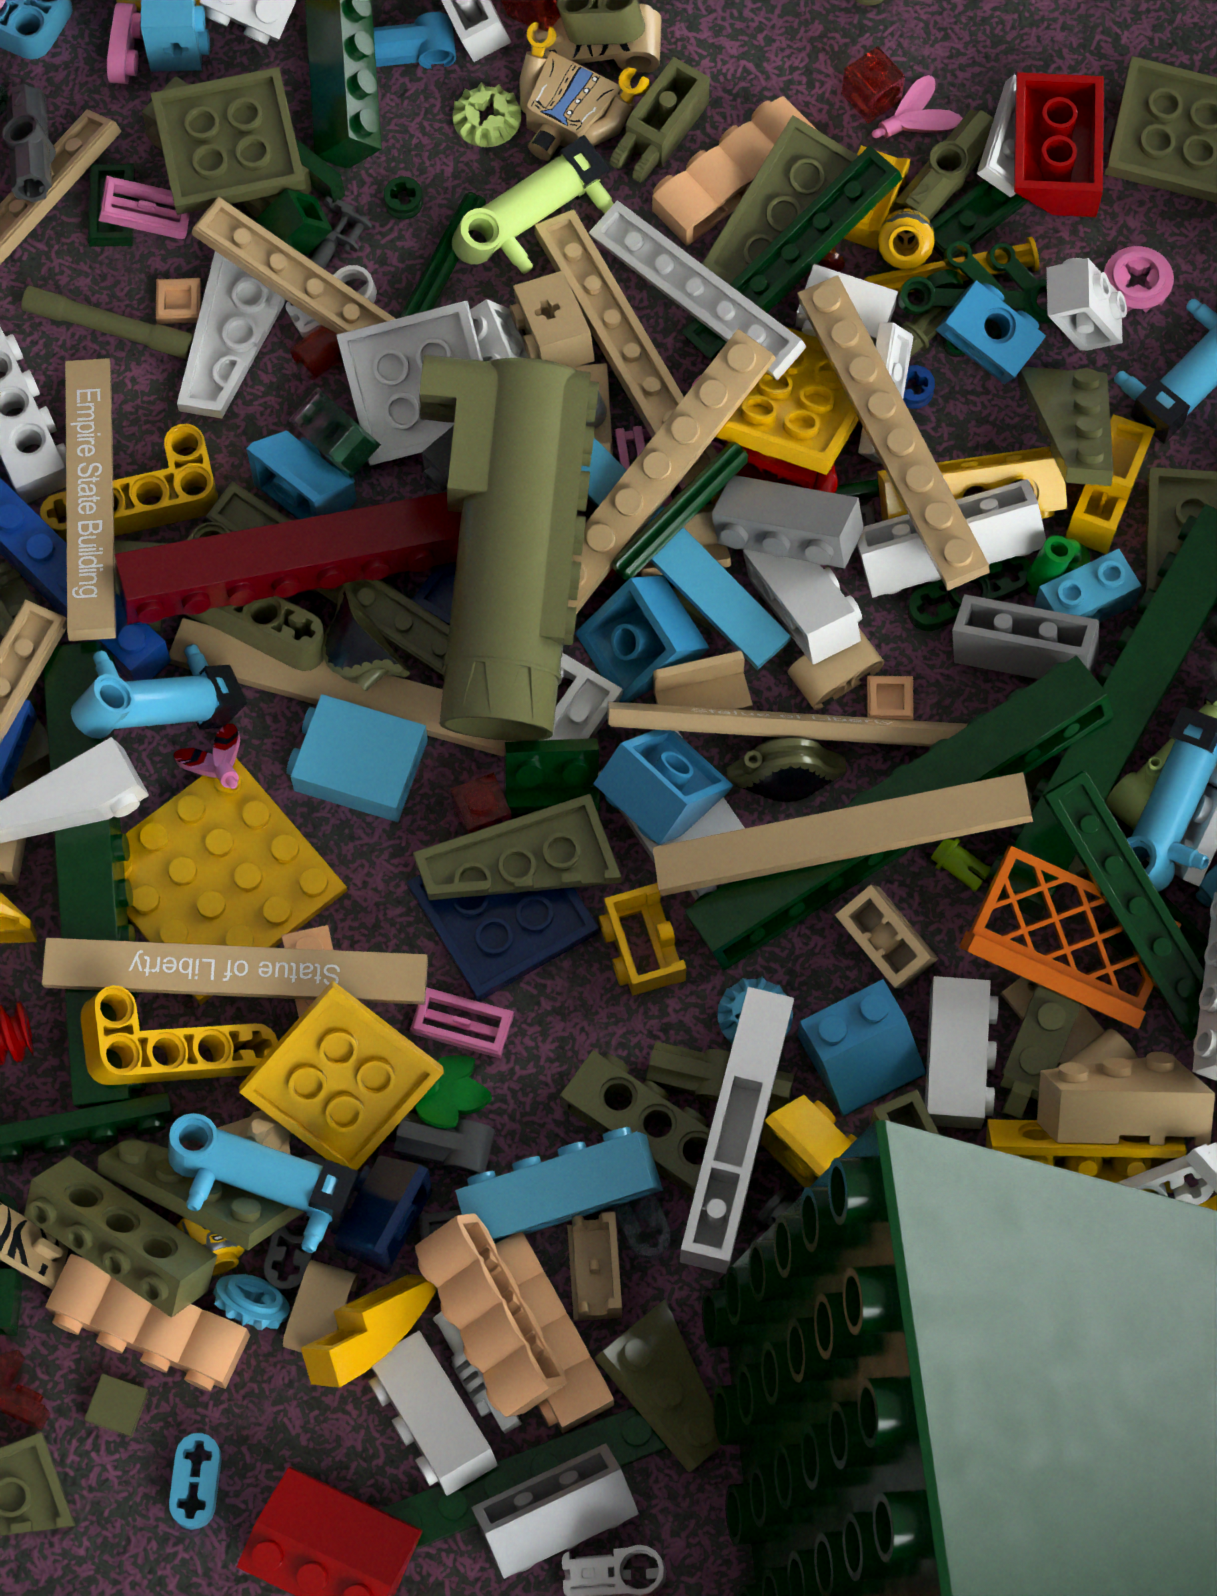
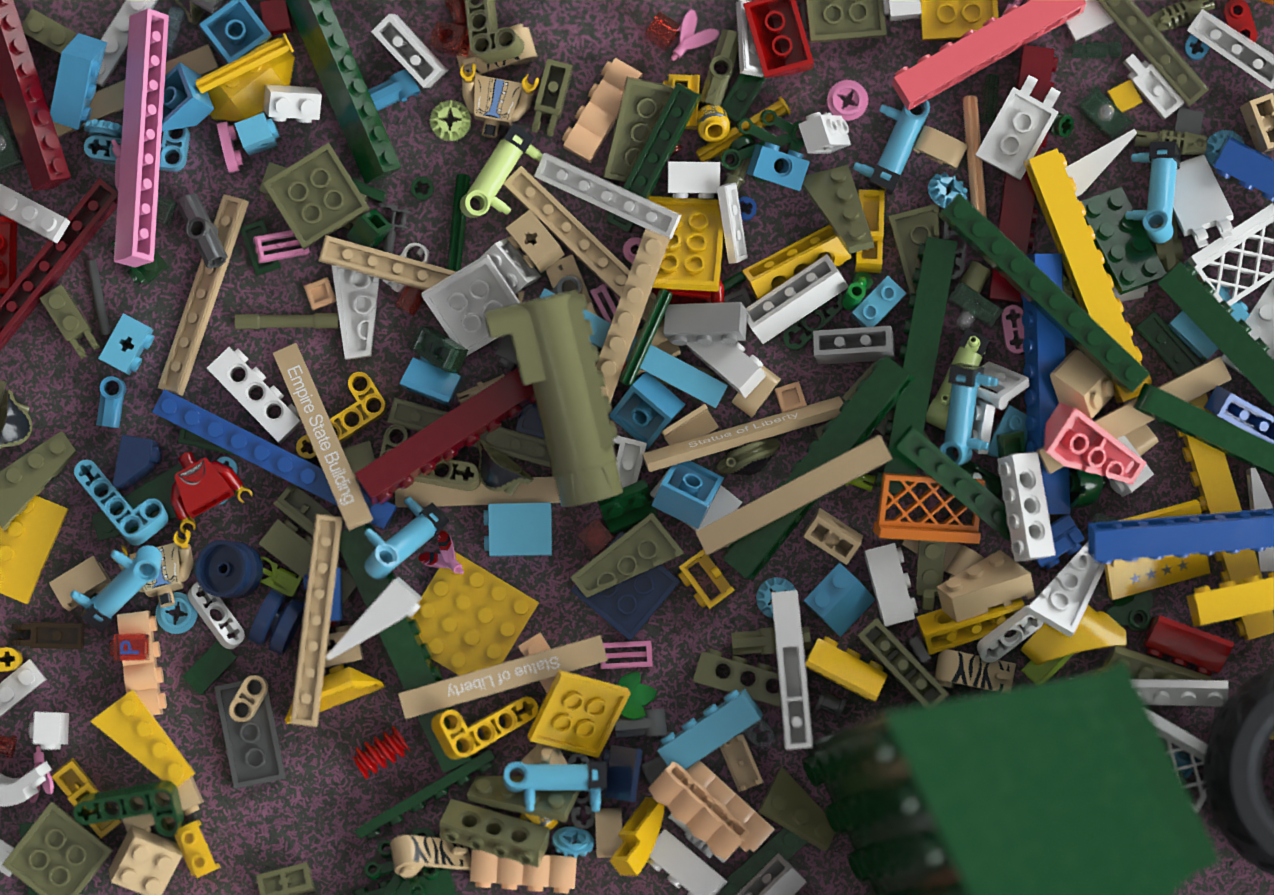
camera: 15 degrees left, 15 degrees up
(893, 433) = (745, 252): tan plate -> none

